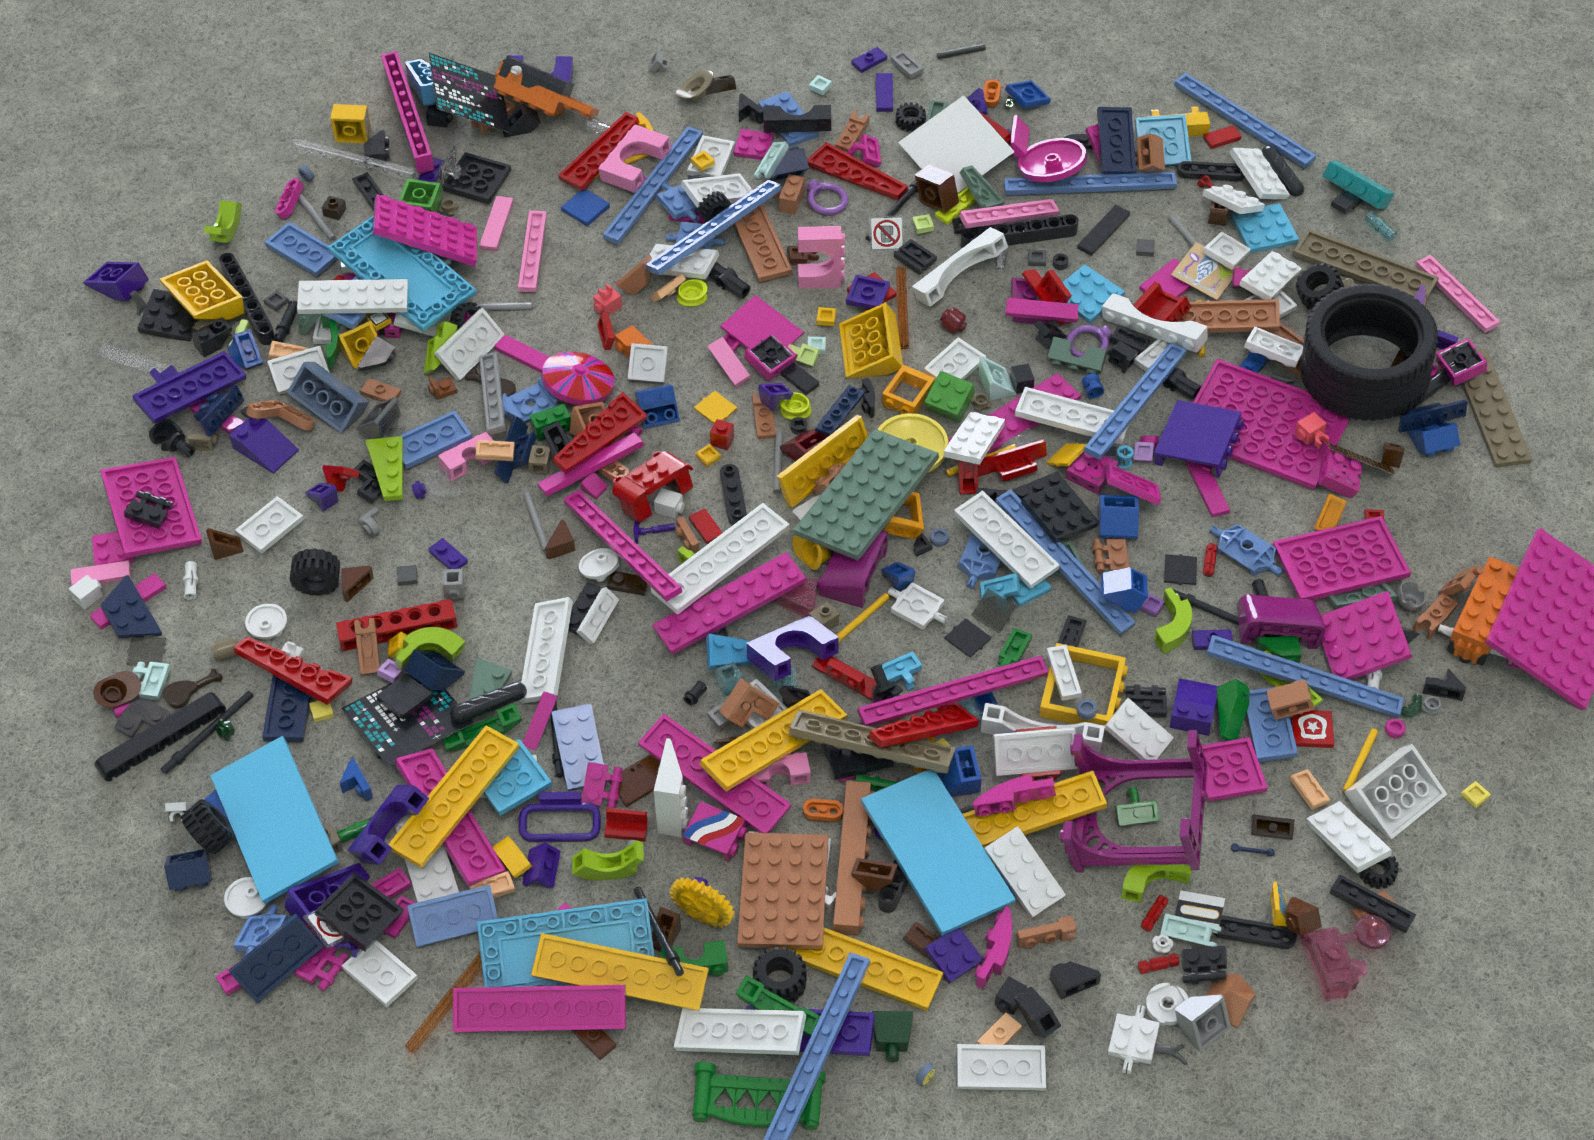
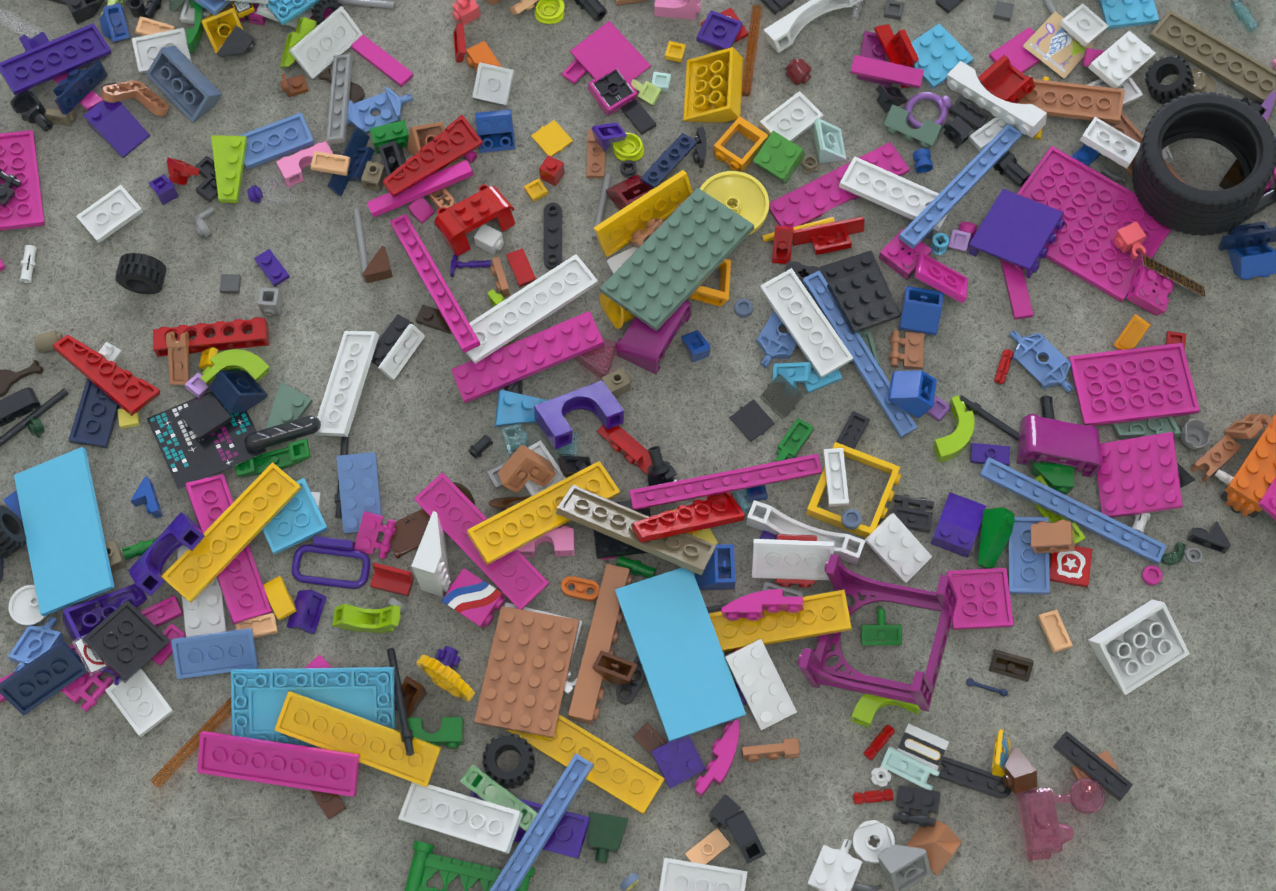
camera: 10 degrees right, 15 degrees up
(223, 544) = (62, 229): reddish brown slope -> none
(266, 621) = (91, 316): white piece -> none
(354, 580) = (178, 284): reddish brown slope -> none
(379, 390) = (236, 82): nougat plate -> none
(380, 419) = (228, 116): flat silver slope -> none
(539, 720) = (328, 457): dark pink sticker -> none
(577, 378) = (423, 92): dish -> none
(599, 564) = (411, 296): white piece -> none
(729, 362) = (572, 91): bright pink tile -> none
(863, 616) = (652, 386): yellow bar -> none
(902, 669) = (681, 447): medium azure plate -> none
(917, 606) = (708, 380): white plate -> none
(922, 545) = (724, 314): black tile -> none
(974, 438) = (794, 208): white plate -> none
(1021, 377) = (854, 144): black brick -> none
(1060, 257) = (916, 22): black bush -> none
(1066, 455) = (883, 234): yellow piece -> none
(1073, 978) = (786, 802): black slope -> none
(1180, 569) = (972, 373): black piece -> none
(1348, 837) = (1083, 690): white plate -> none
(1361, 759) = (1111, 605): yellow bar -> none
(1381, 879) = (1114, 718): black tyre -> none
(1392, 454) = (1207, 273): reddish brown slope -> none
(1475, 794) = (1217, 658): light yellow tile -> none

